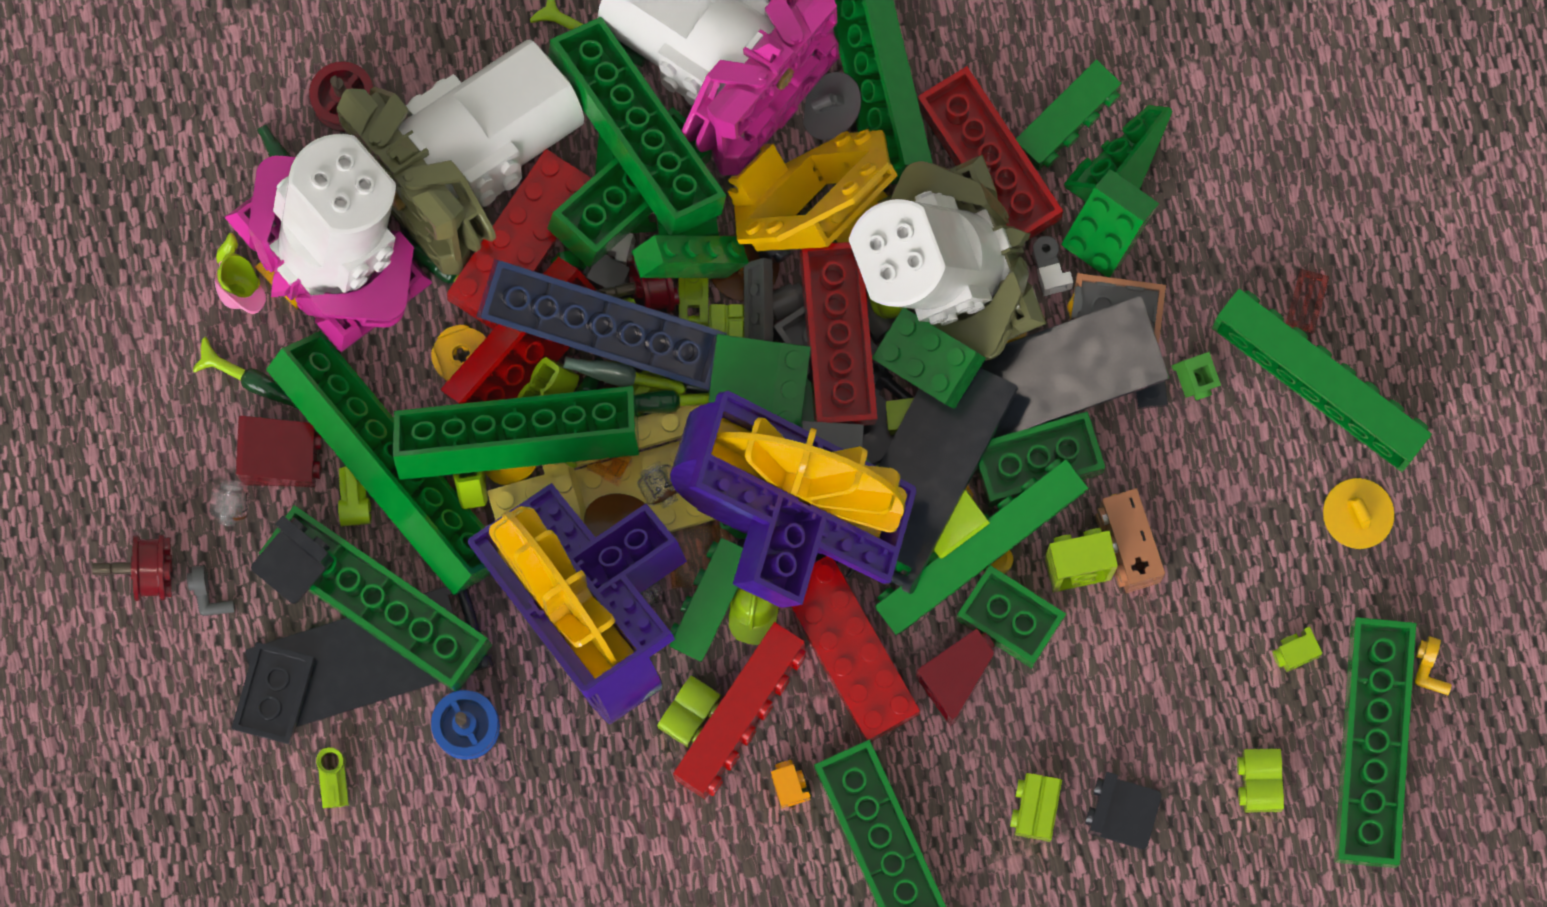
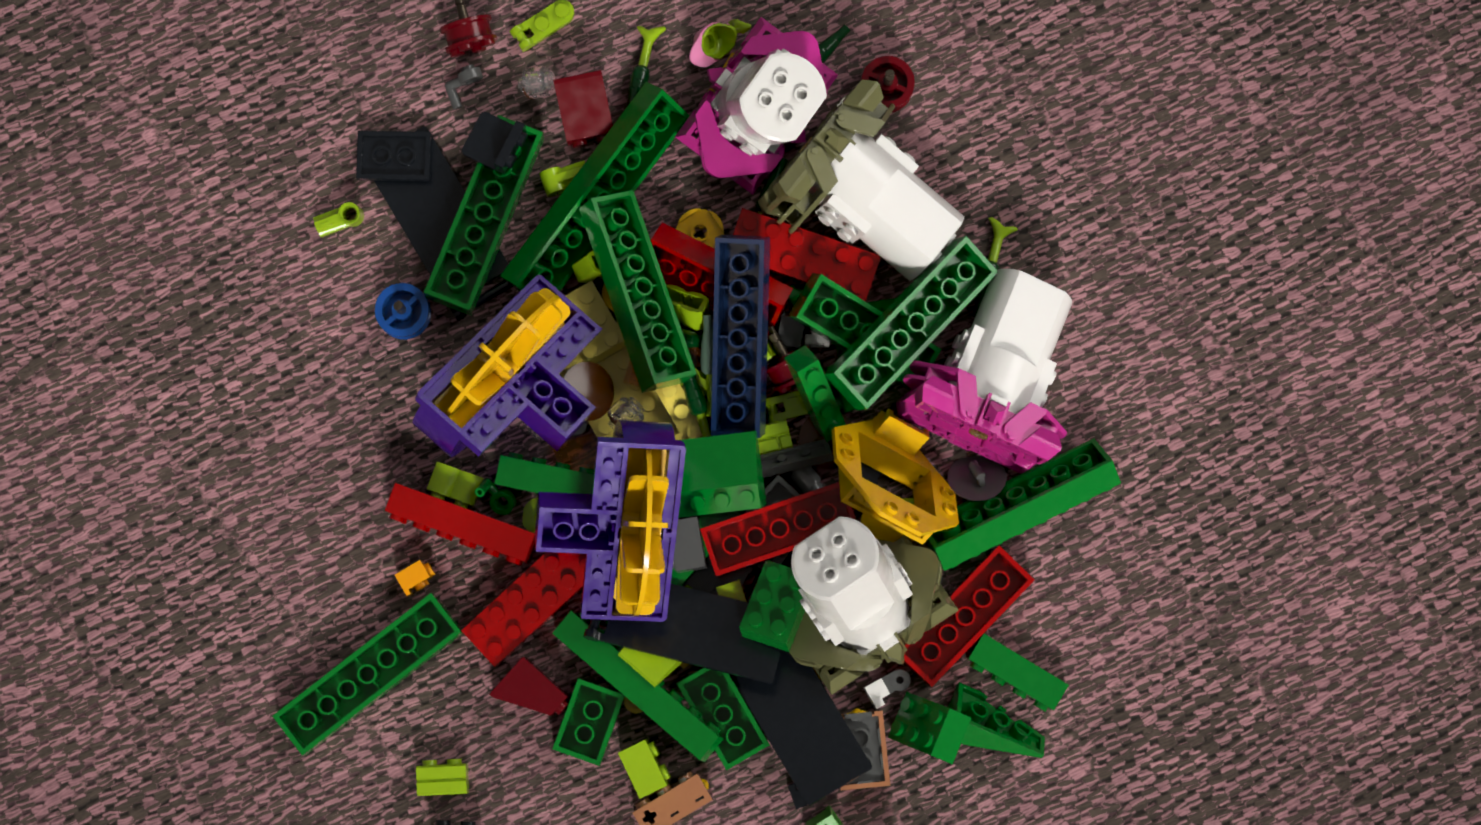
camera: 70 degrees right, 5 degrees up
(159, 479) = (543, 24): none -> lime plate
(728, 667) = (496, 502): none -> green plate

